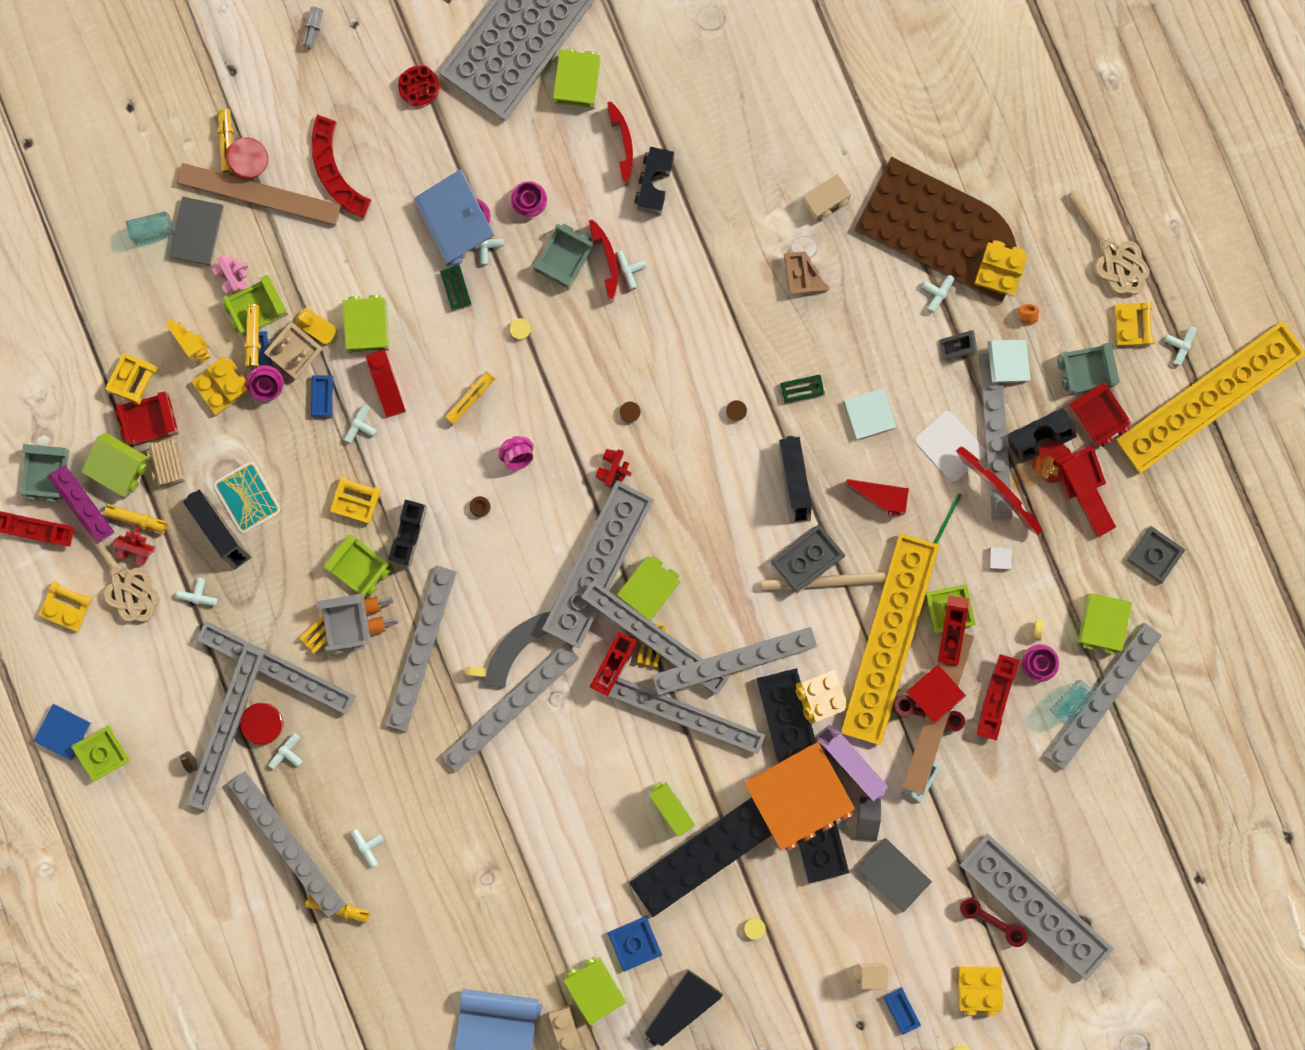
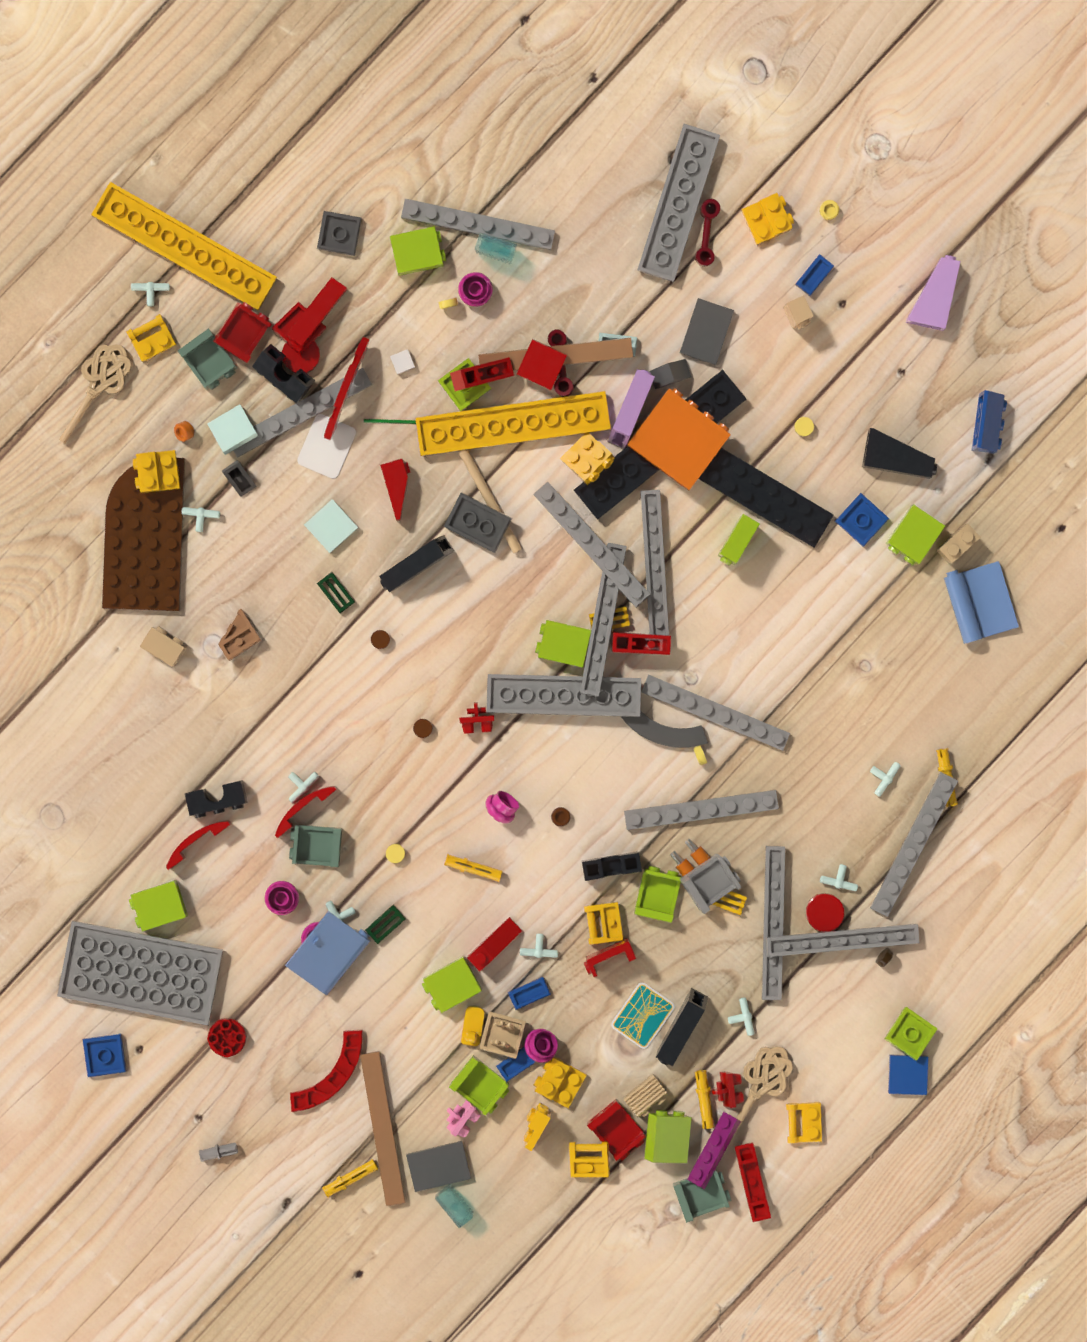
camera: 115 degrees left, 5 degrees up
(246, 158) = (357, 1152): tile -> none
(252, 336) = (513, 1071): yellow pin -> none
(324, 486) = (608, 952): none -> red panel
(997, 696) = (520, 312): red slope -> none
(1044, 467) = (310, 359): clear yellow tile -> none

